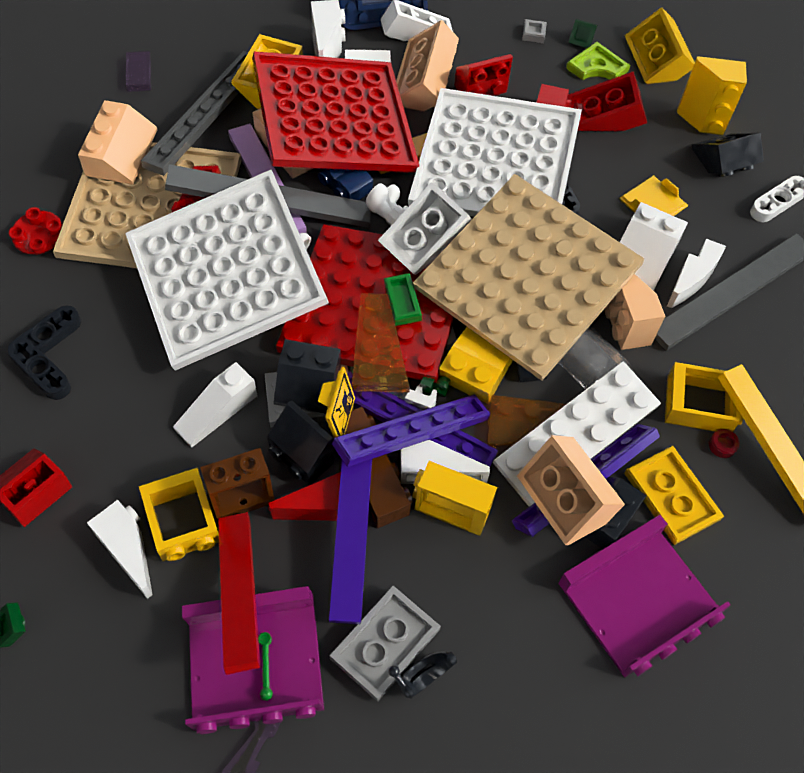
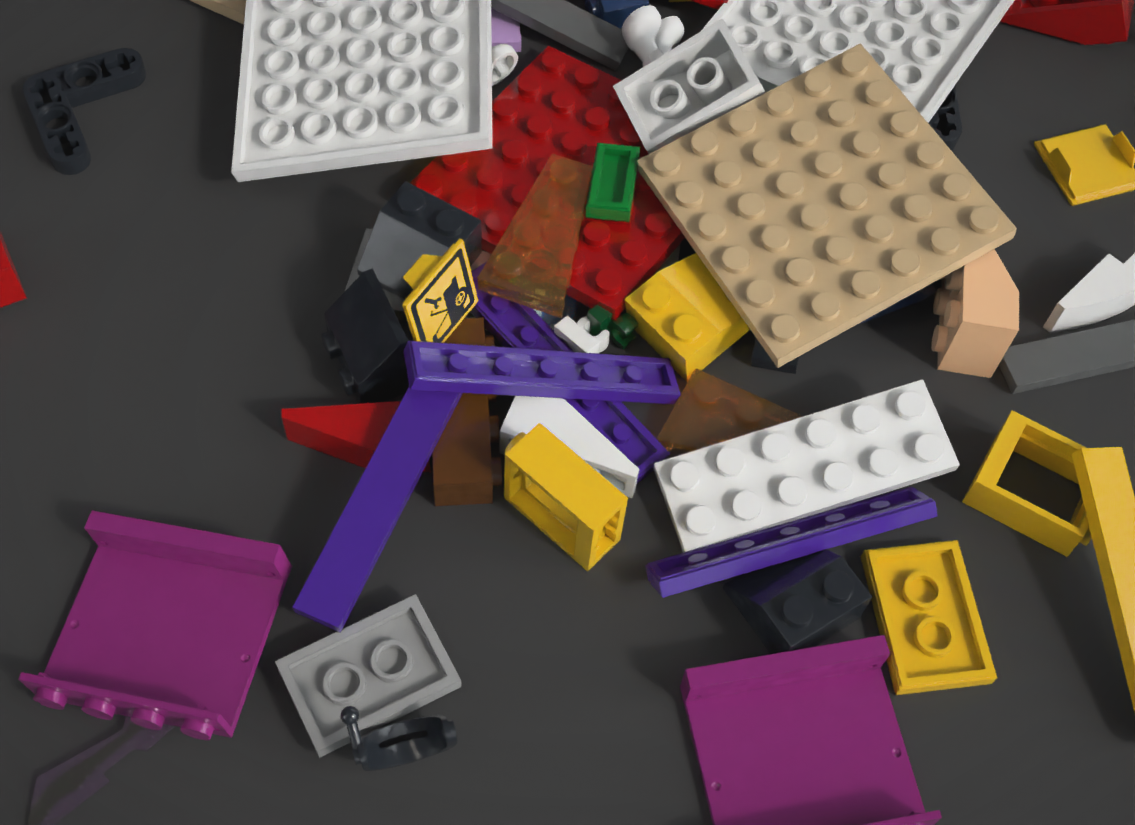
camera: 20 degrees right, 0 degrees up
(123, 539) = (59, 398): white slope -> none
(171, 489) = (153, 345): yellow window -> none
(216, 404) = (278, 248): white slope -> none
(227, 493) = (228, 389): reddish brown window -> none
(238, 595) = (171, 522): red tile -> none
(265, 640) = (191, 604): green hinge -> none
(569, 489) = (747, 542): light nougat slope -> none
(591, 358) = (878, 358): clear slope -> none
(654, 238) = (1057, 220): white slope -> none
(724, 443) = (1047, 566): dark red tile -> none

